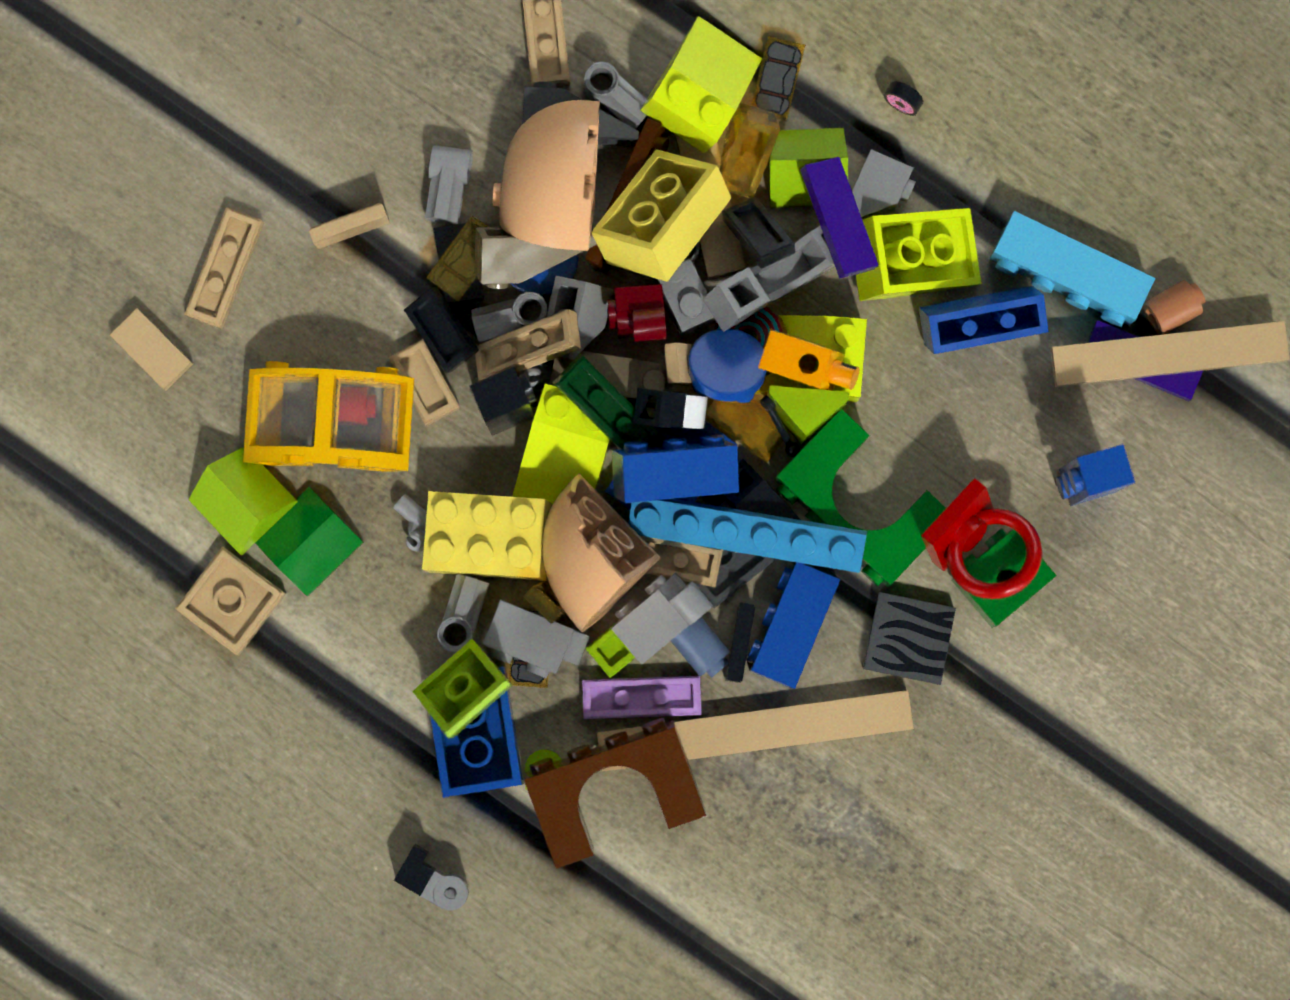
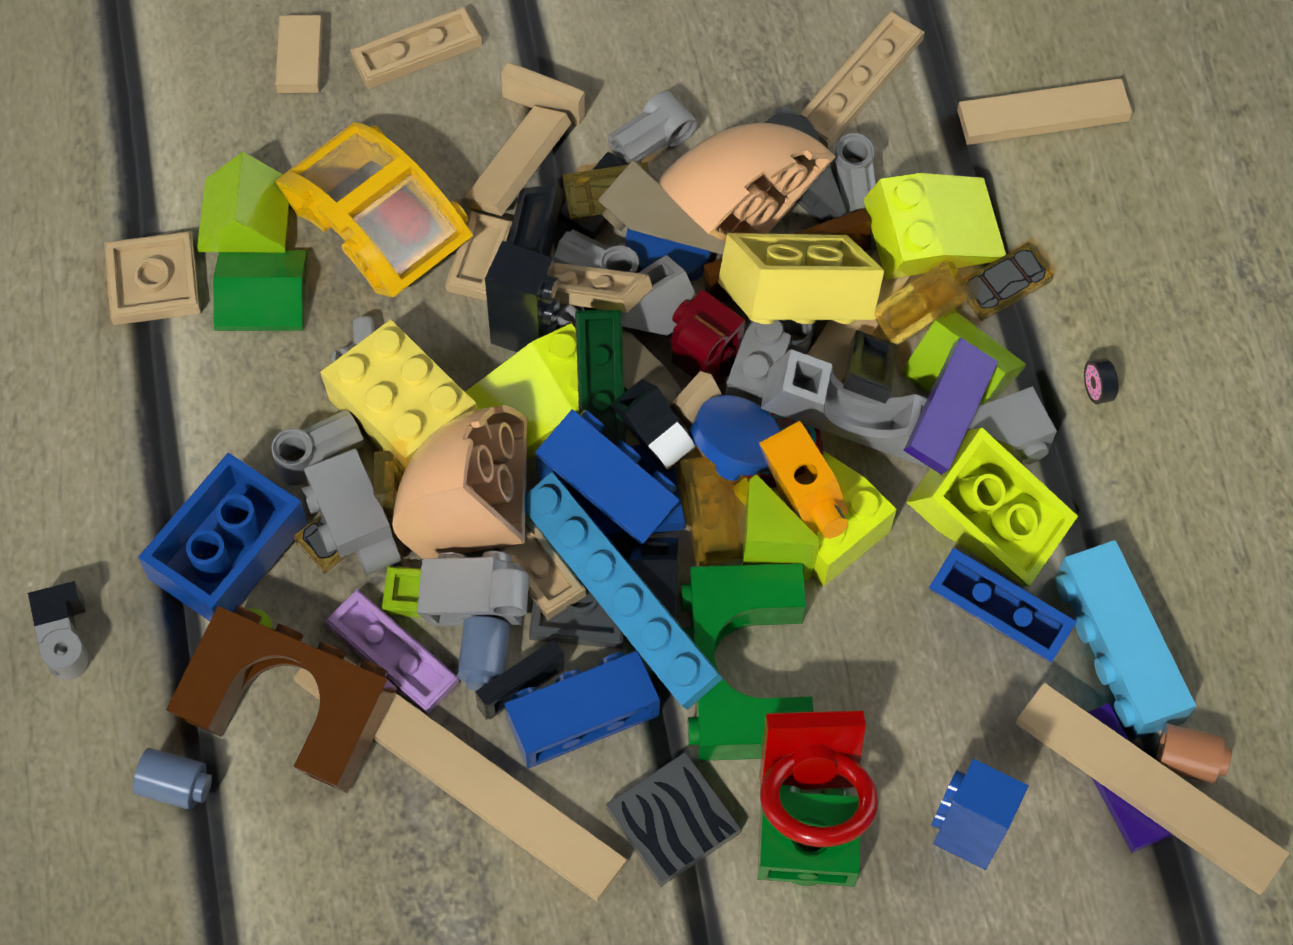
camera: 40 degrees right, 20 degrees down
(381, 291) = (517, 160): none -> tan tile
(462, 688) = (245, 486): lime slope -> none
(598, 901) = (171, 779): none -> sand blue brick
(791, 448) = (740, 504): black hinge -> none

